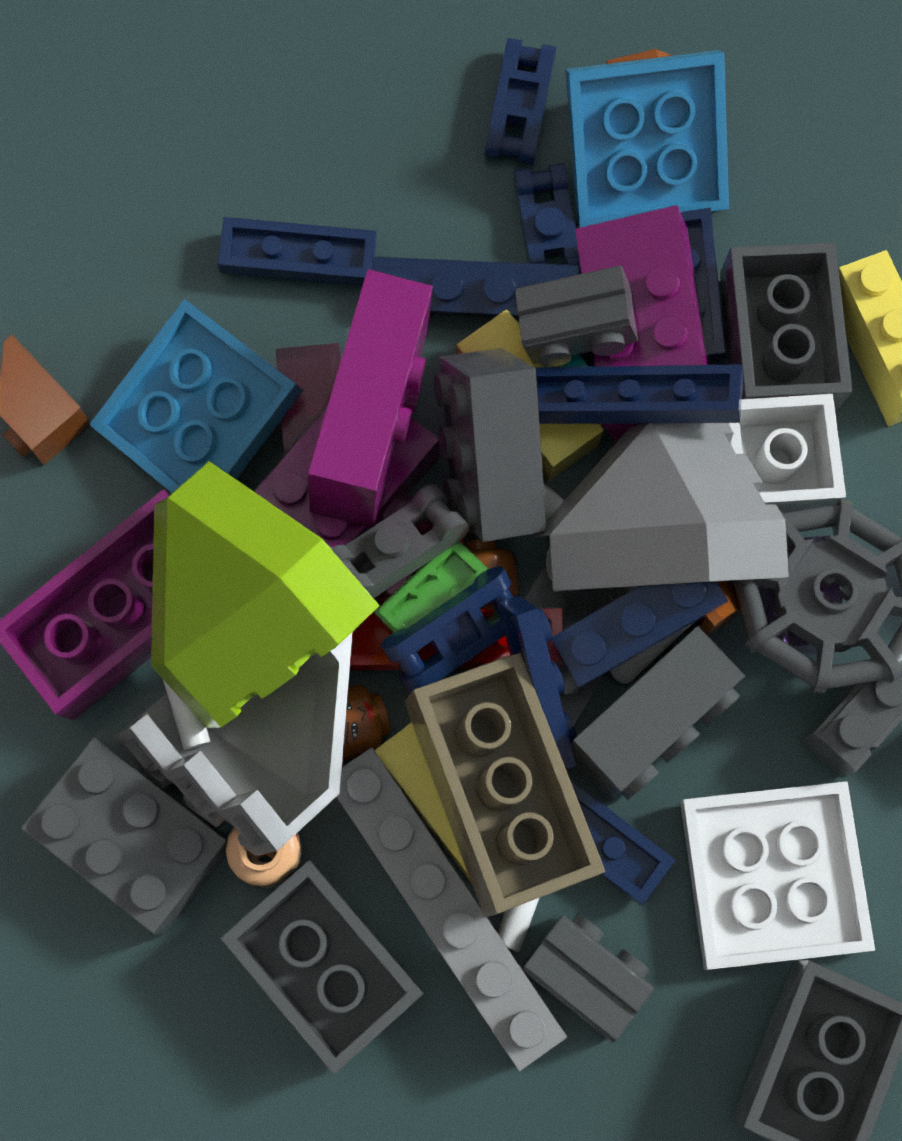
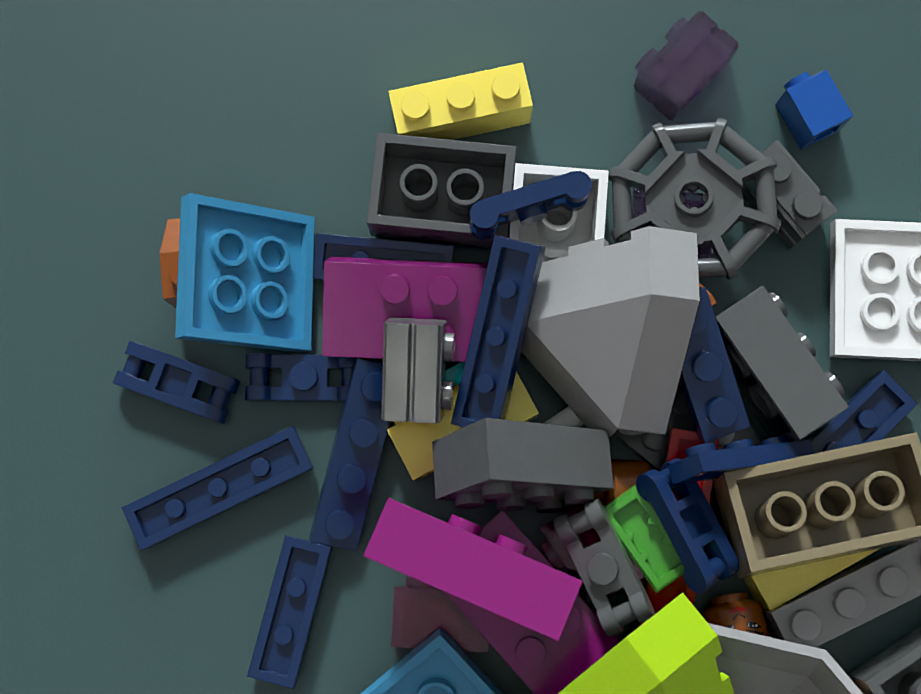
camera: 75 degrees left, 5 degrees up
(416, 160) = (217, 488): none -> dark blue plate
(787, 405) = (529, 203): none -> dark blue plate

